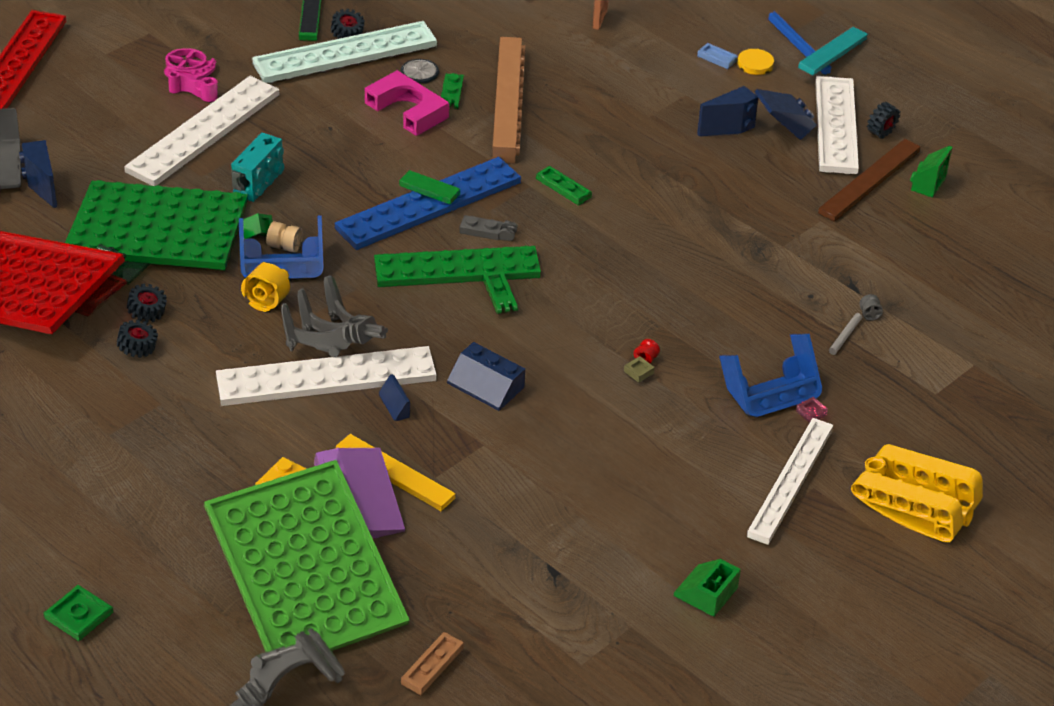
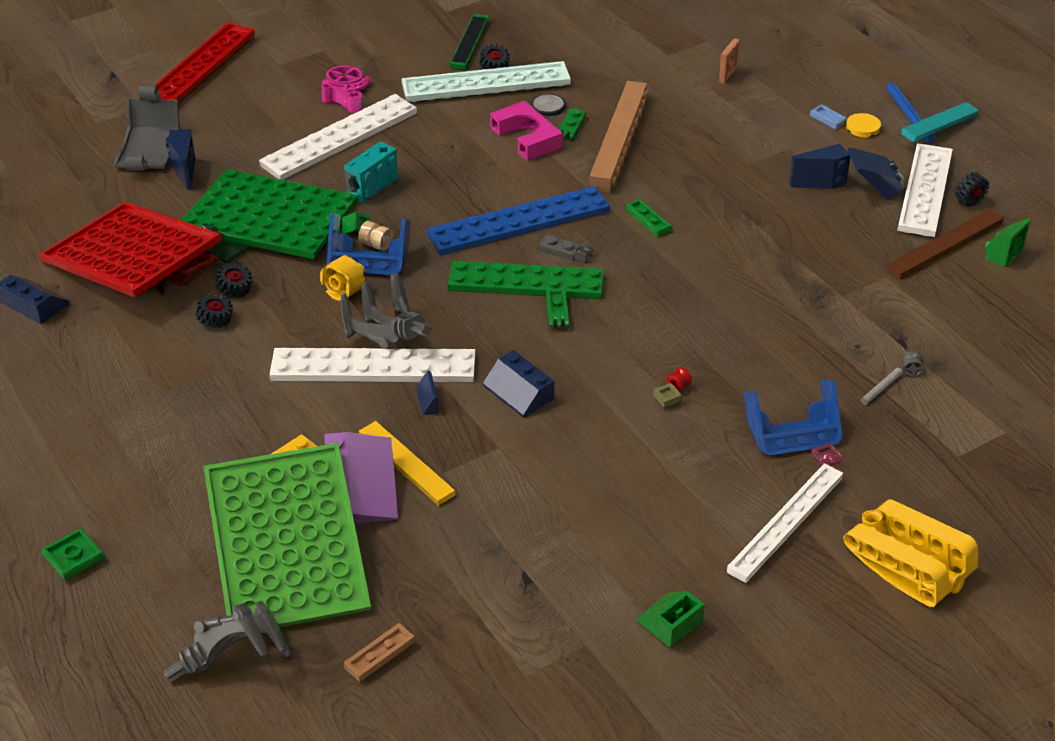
camera: 15 degrees right, 0 degrees up
(429, 187) = (521, 206): green tile -> none

